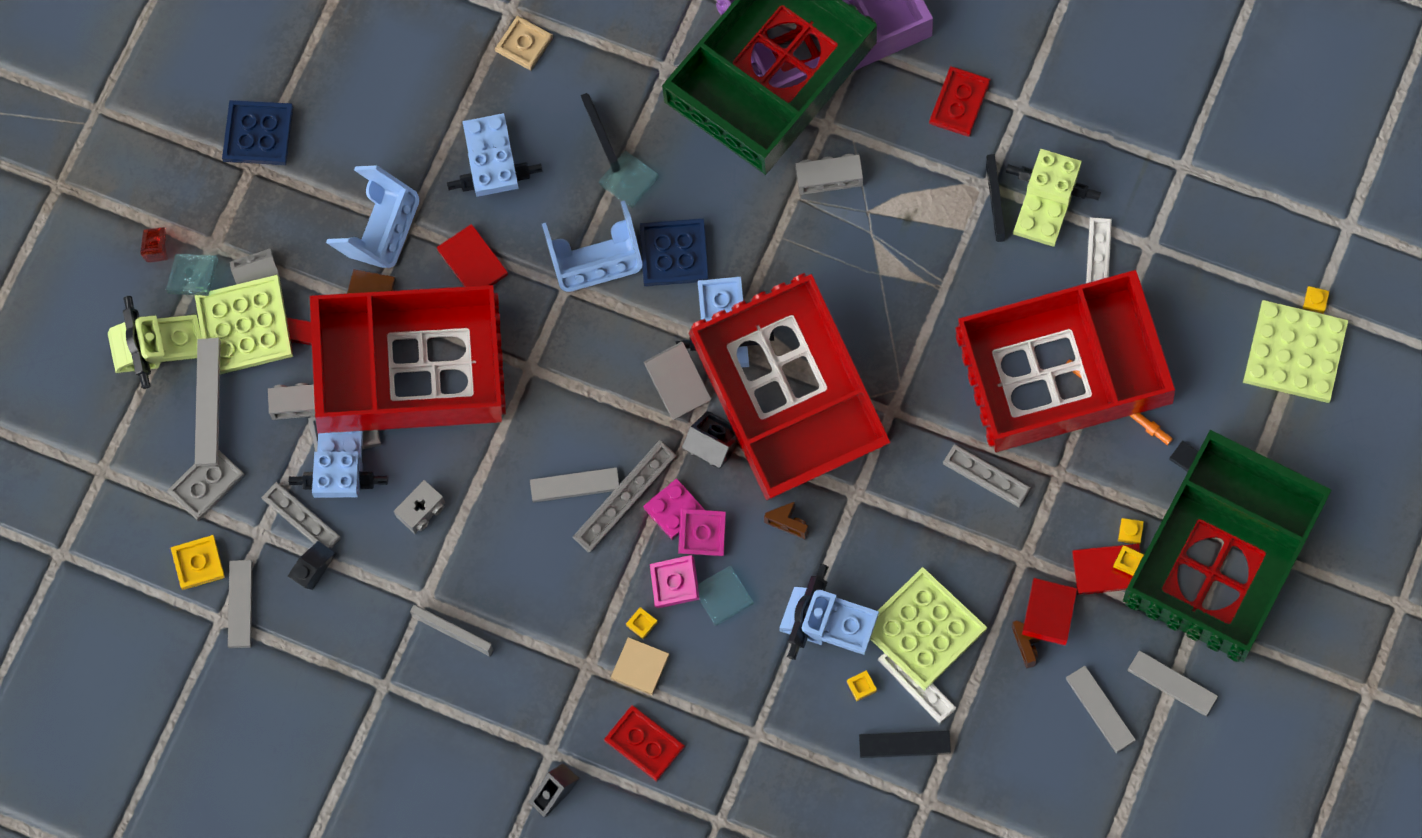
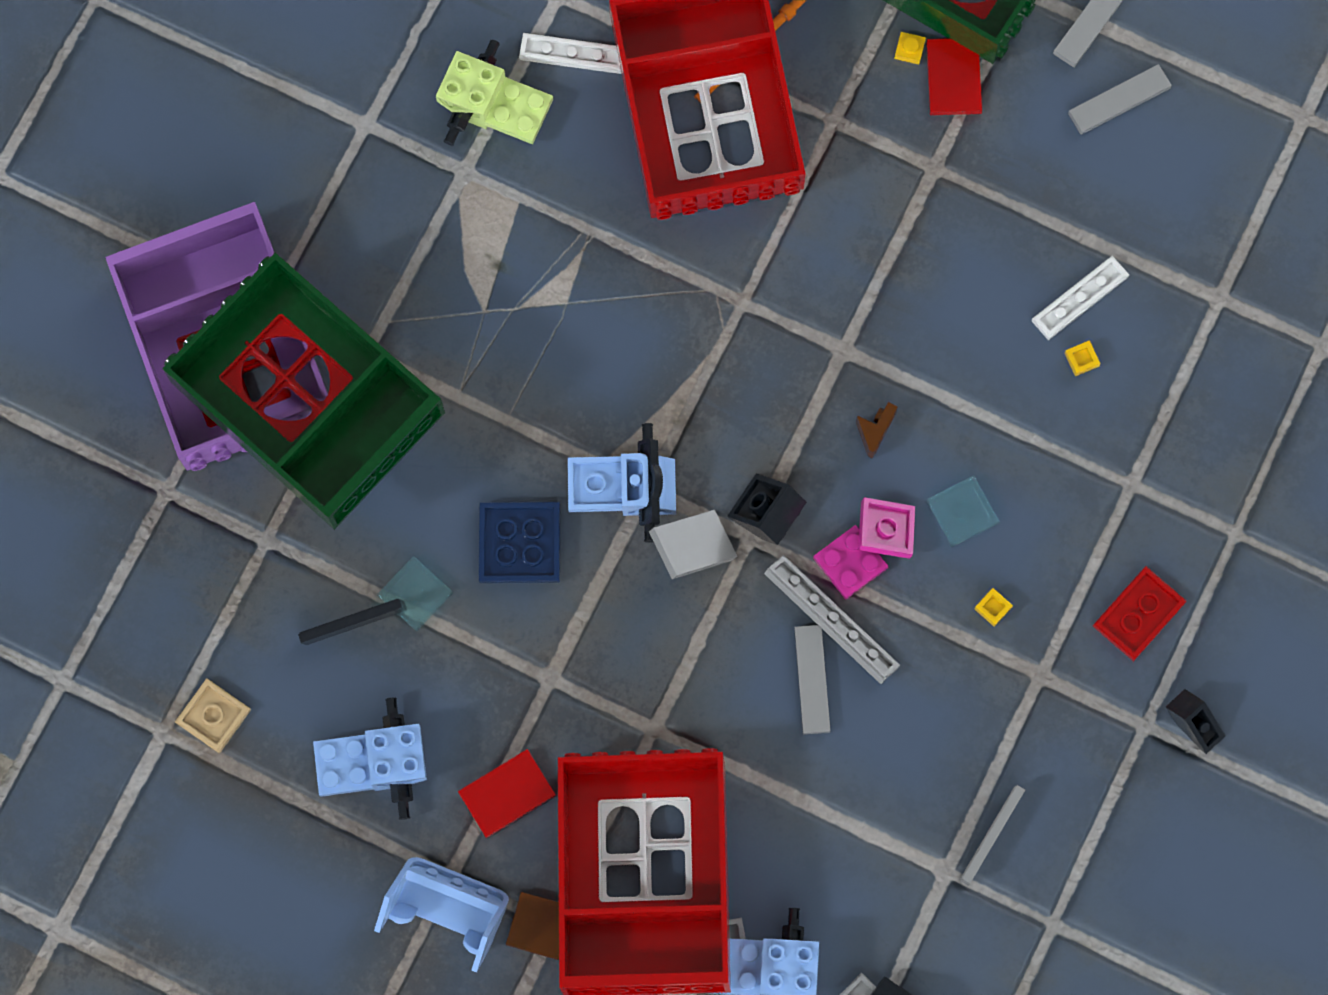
camera: 90 degrees left, 5 degrees up
(422, 496) = (835, 884): light grey brick -> none
(596, 262) = (520, 632): light blue windscreen -> none
(640, 666) = (1045, 613): tan tile -> none
(674, 581) = (945, 564): plate -> none
(807, 432) = (773, 390): red panel -> none
(822, 617) = (1004, 389): light blue piece -> none
(829, 174) = (434, 349): light grey brick -> none
(904, 744) = (1152, 316): black tile -> none
(925, 628) = (1017, 283): yellowish green plate -> none
(959, 101) = (352, 193): red tile -> none
(986, 475) = (831, 200): light grey tile -> none
(995, 198) = (485, 159): black tile -> none
(1027, 651) = (1035, 173): reddish brown slope -> none
(1049, 611) = (1007, 140): red tile -> none
(1128, 560) = (950, 49): yellow plate -> none

